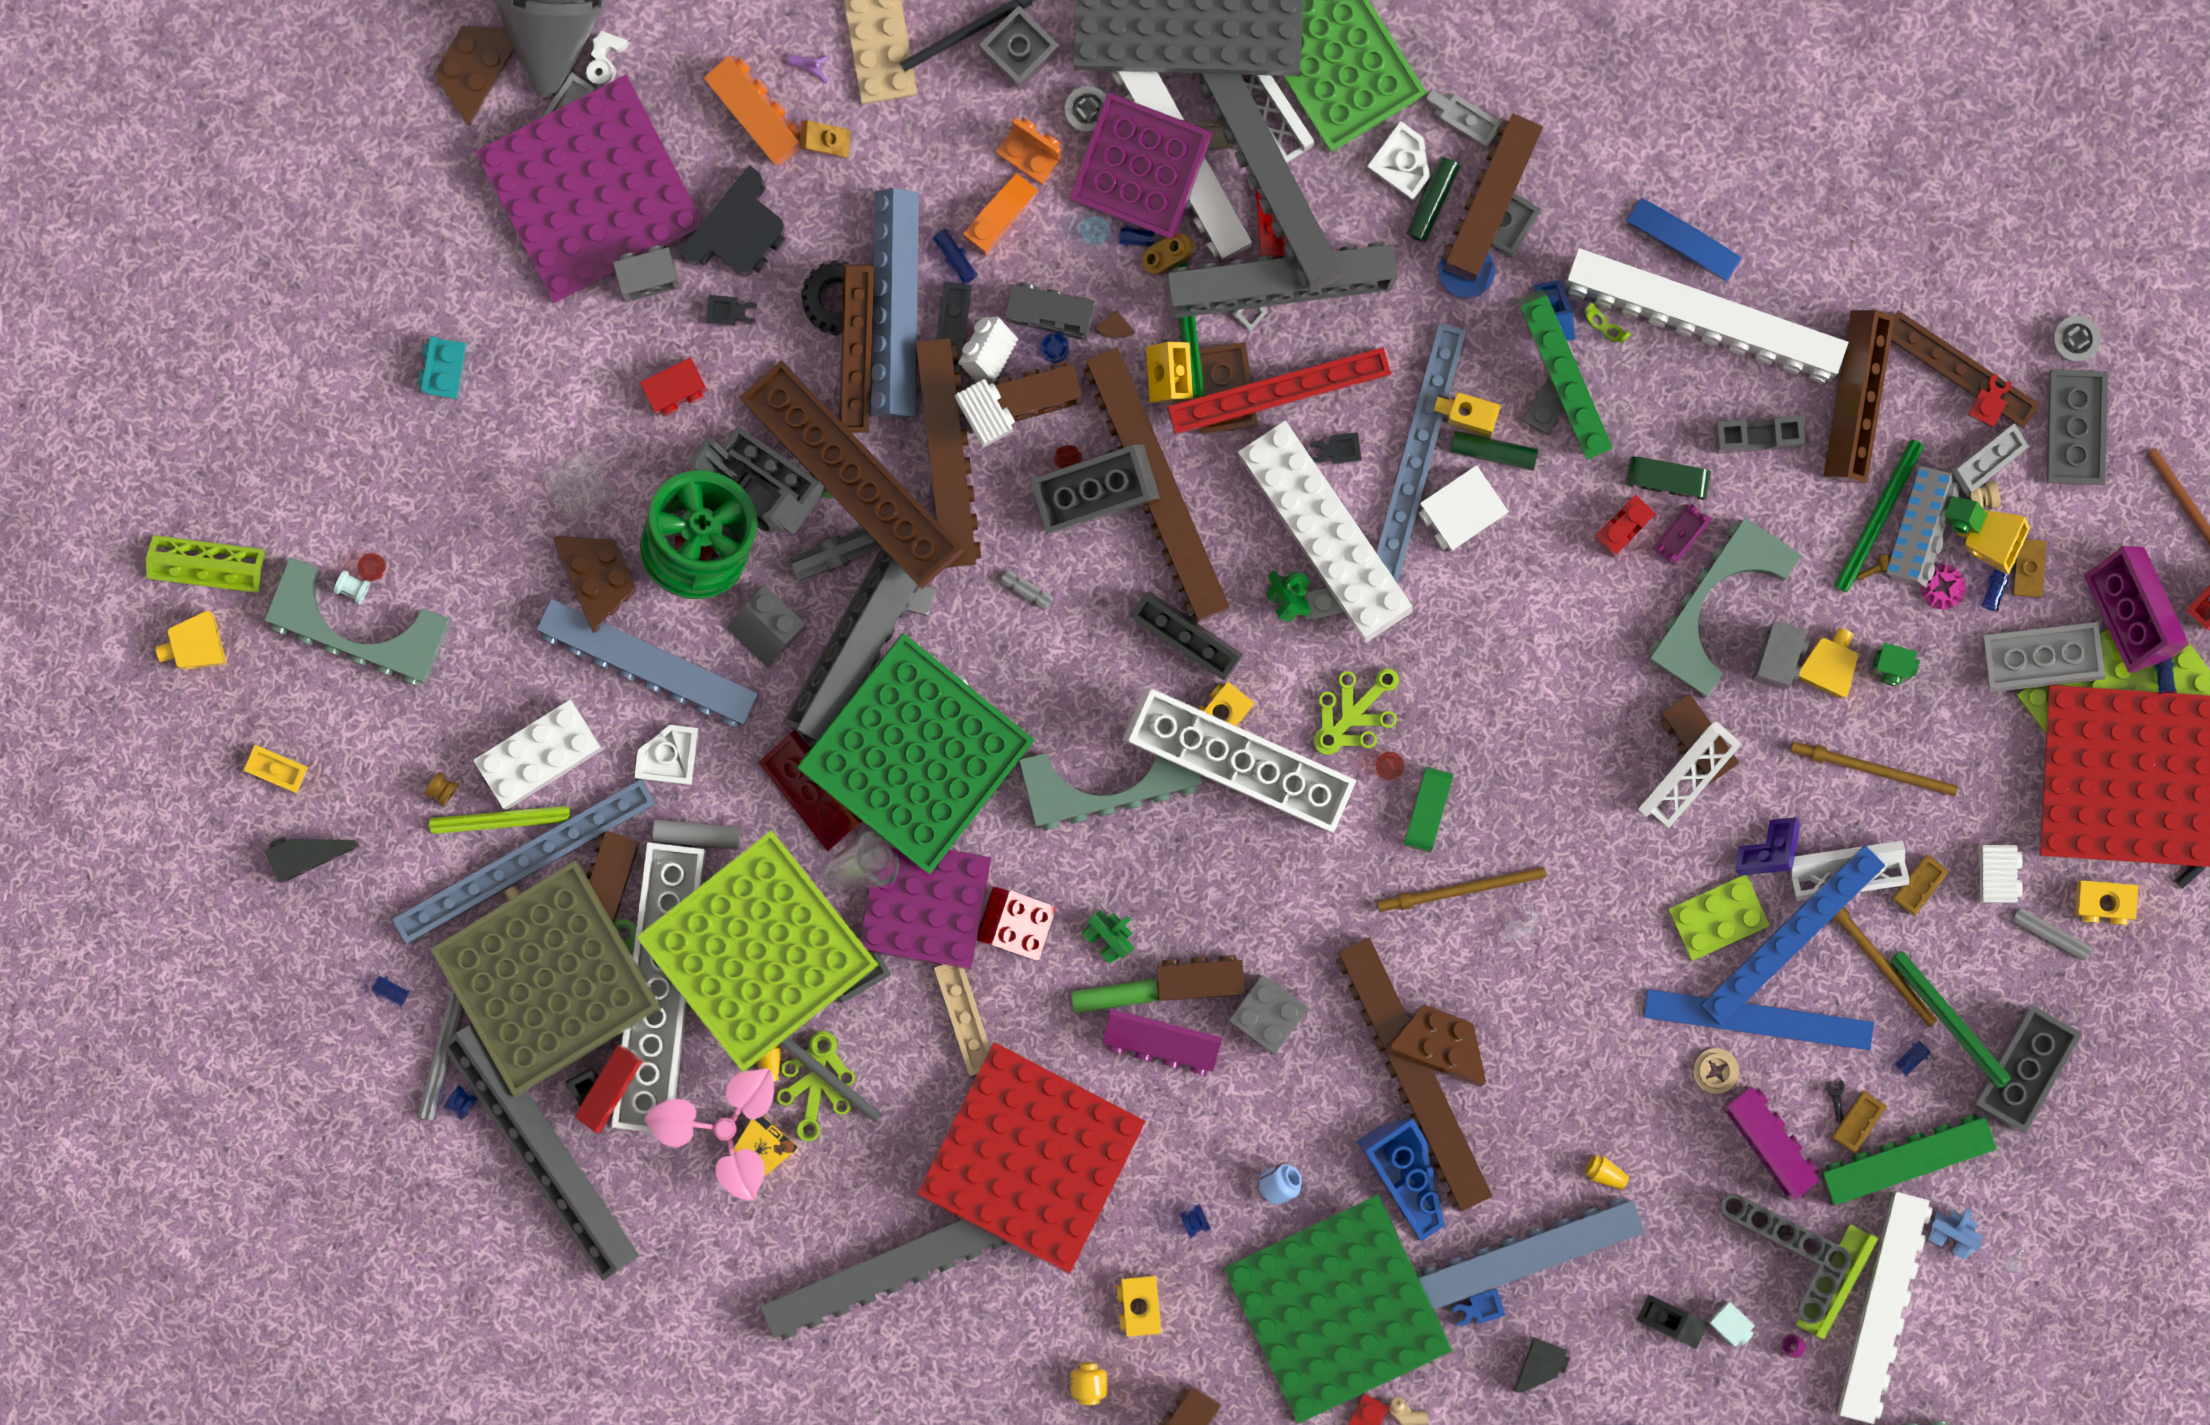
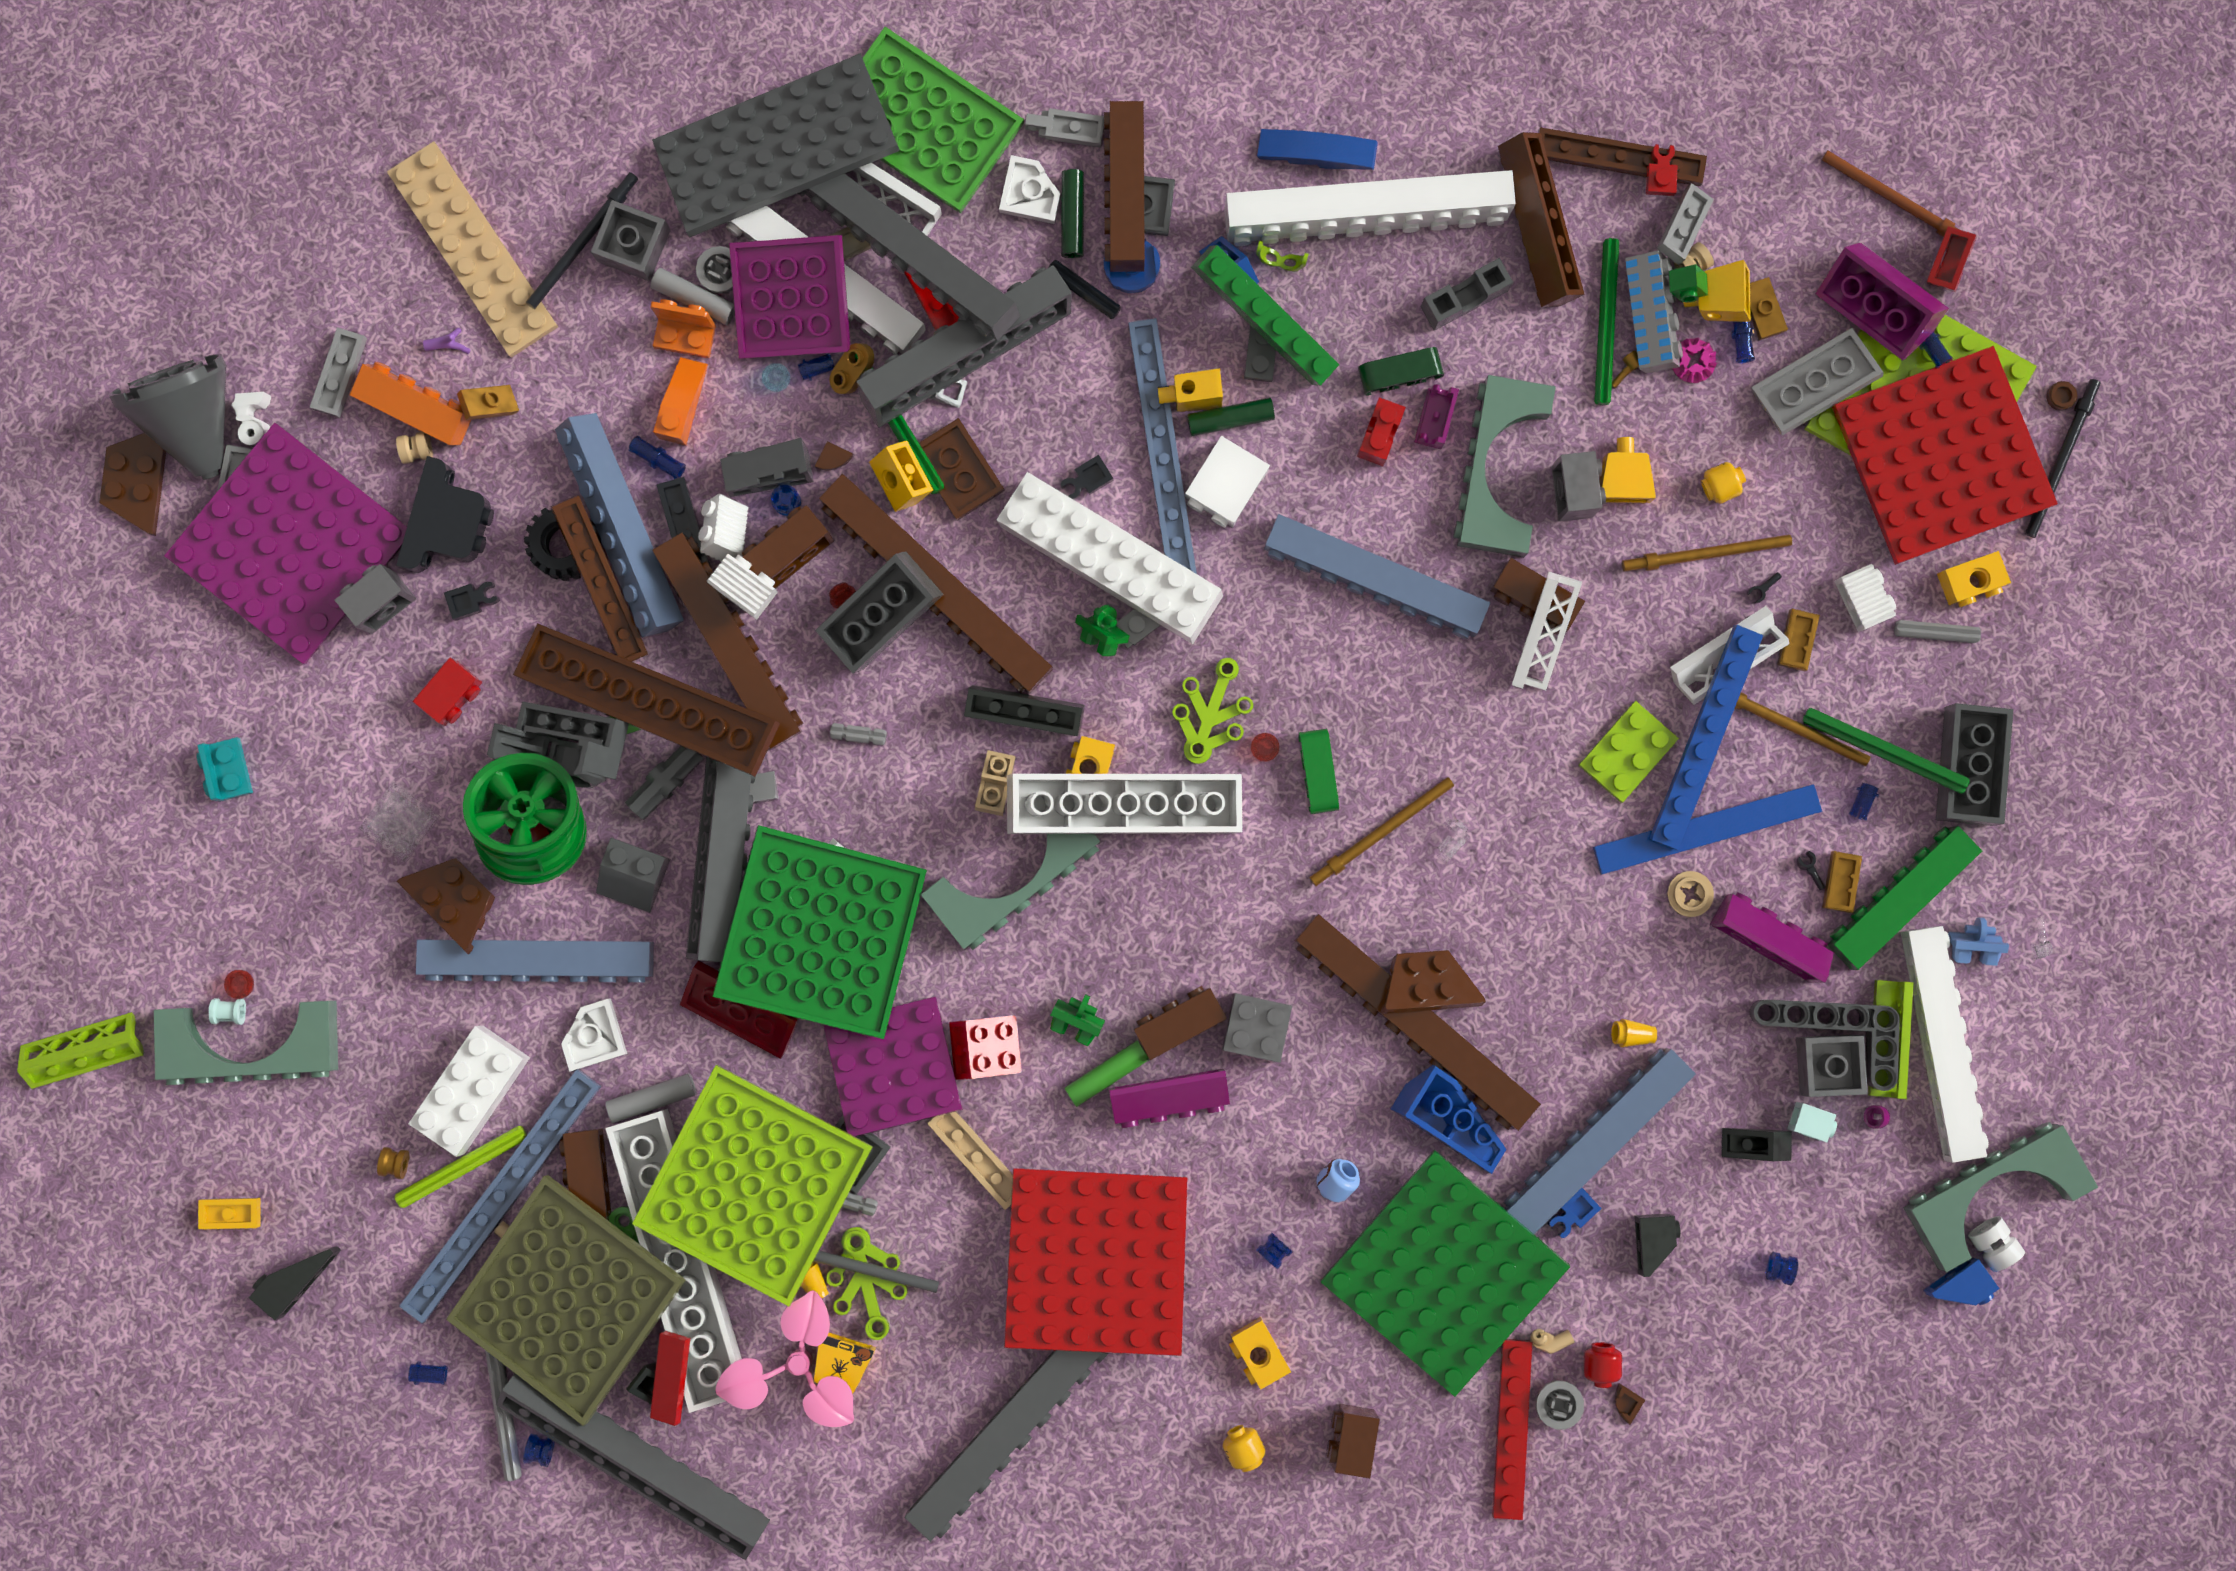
camera: 25 degrees left, 0 degrees up
(194, 643) = (100, 1130): yellow torso -> none
(700, 50) = (338, 372): none -> light grey plate
(746, 150) = (414, 447): none -> tan wheel
(839, 1011) = (856, 1203): none -> light grey axle
(861, 864) = (816, 1058): clear cone -> none
(1053, 122) = (689, 293): none -> light grey piece
(1130, 688) = (993, 785): none -> tan slope
(1278, 391) = (1008, 448): red plate -> none
(1413, 274) = (1087, 291): none -> black axle
(1560, 655) = (1377, 576): none -> sand blue brick
(1771, 1280) = (1831, 1065): none -> flat silver brick
(1775, 854) = (1656, 669): dark purple plate -> none
(1894, 664) = (1685, 447): green brick -> none
(1913, 823) = (1765, 586): none -> black hand
(1917, 711) = (1723, 482): none -> yellow head
(2076, 338) = (1712, 82): light grey piece -> none
(2077, 427) = (1749, 162): dark grey plate -> none

